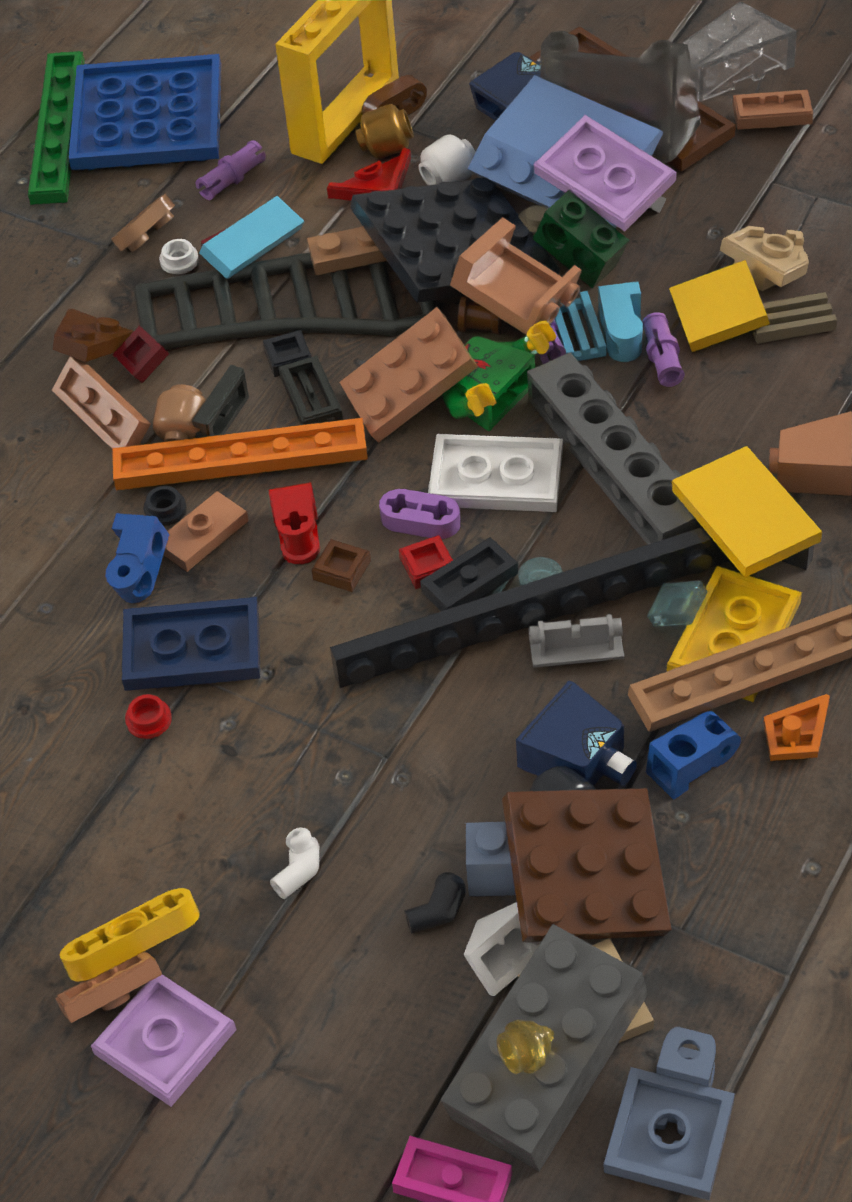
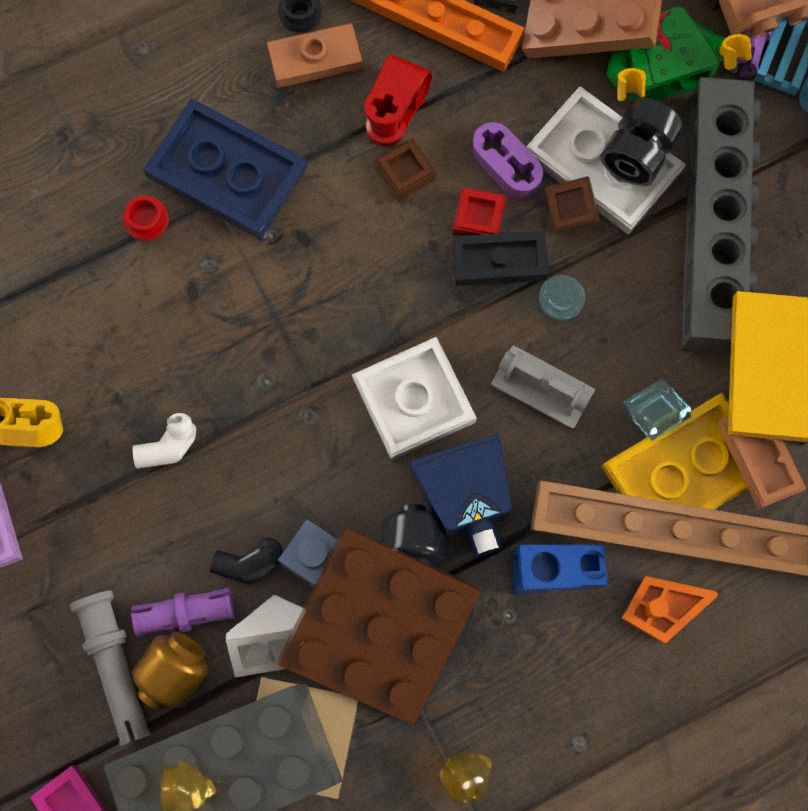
camera: 30 degrees right, 25 degrees up
(137, 556) = (236, 51): blue leg -> none
(364, 1034) = (105, 644): none -> light grey pin
(411, 972) = (182, 612): none -> medium lavender pin
(437, 1015) = (170, 671): none -> pearl gold head
(479, 713) = (414, 398): none -> white tile
(496, 511) = (572, 204): none -> reddish brown tile
(518, 433) = (643, 139): none -> black wheel
(524, 606) = (525, 324): black plate -> none
(743, 939) = (466, 776): none -> clear yellow plate
(787, 586) = (764, 467): none -> nougat plate

